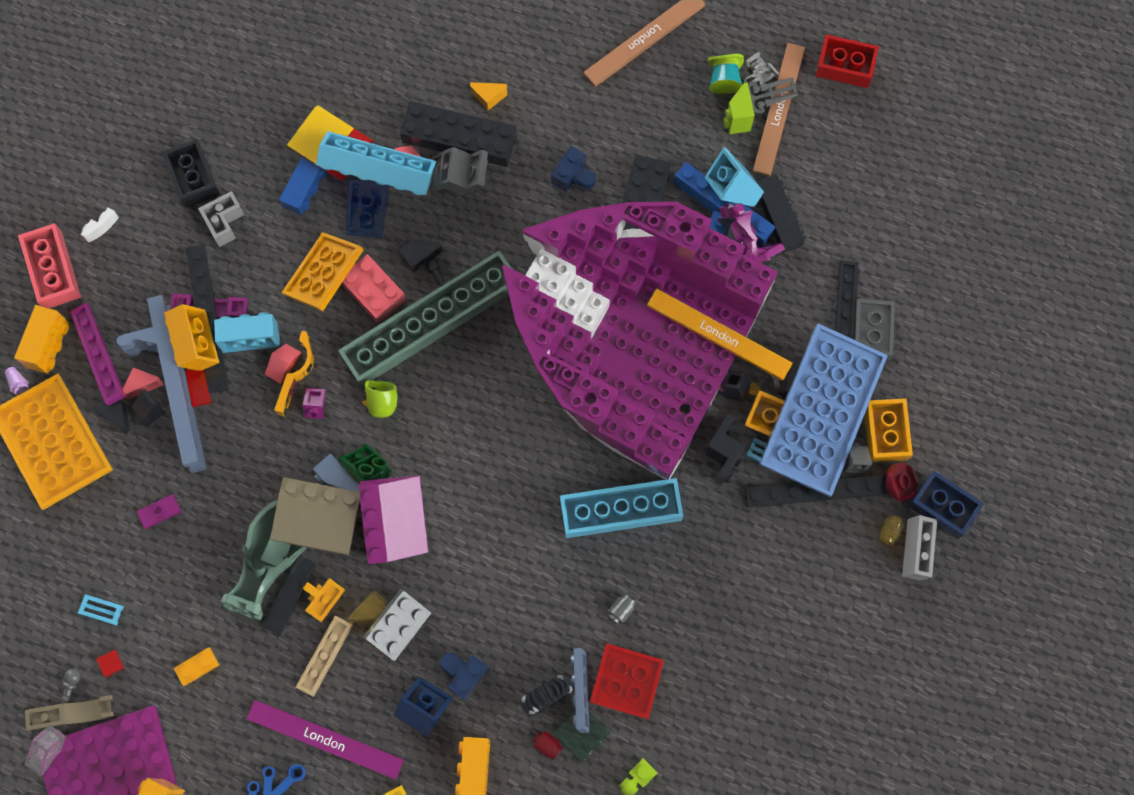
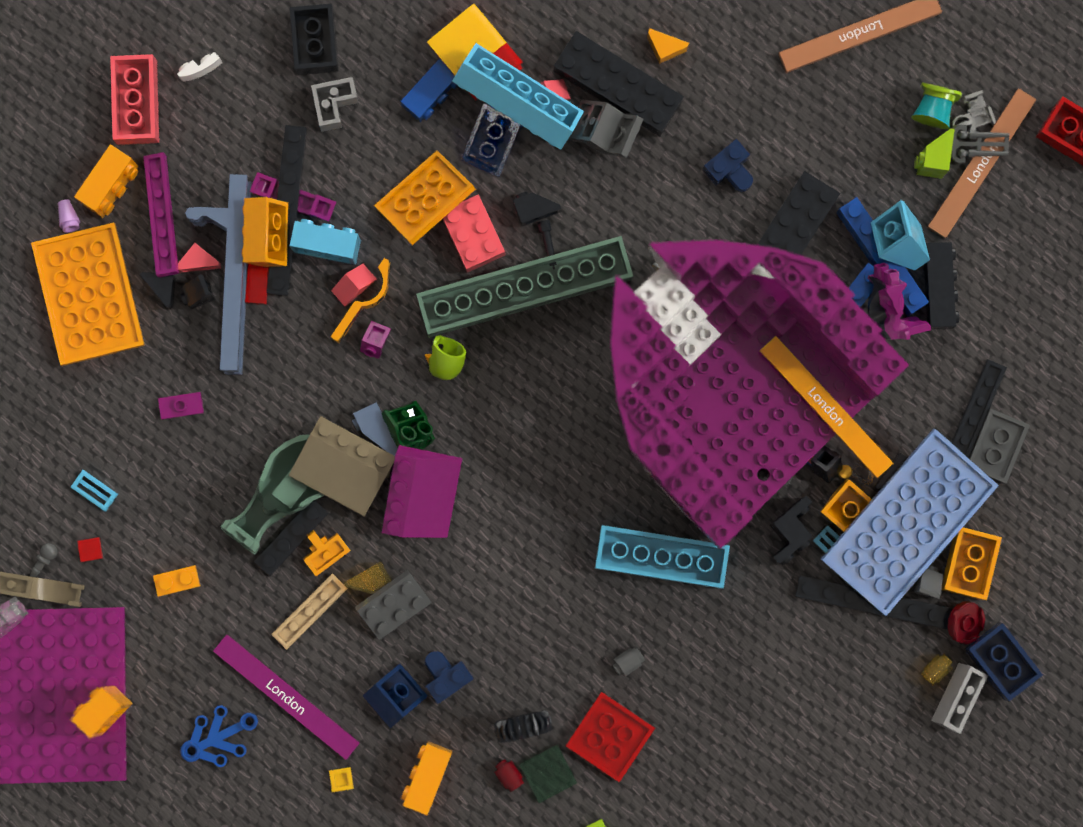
camera: 15 degrees right, 10 degrees up
(580, 699) = (557, 740): sand blue plate -> none

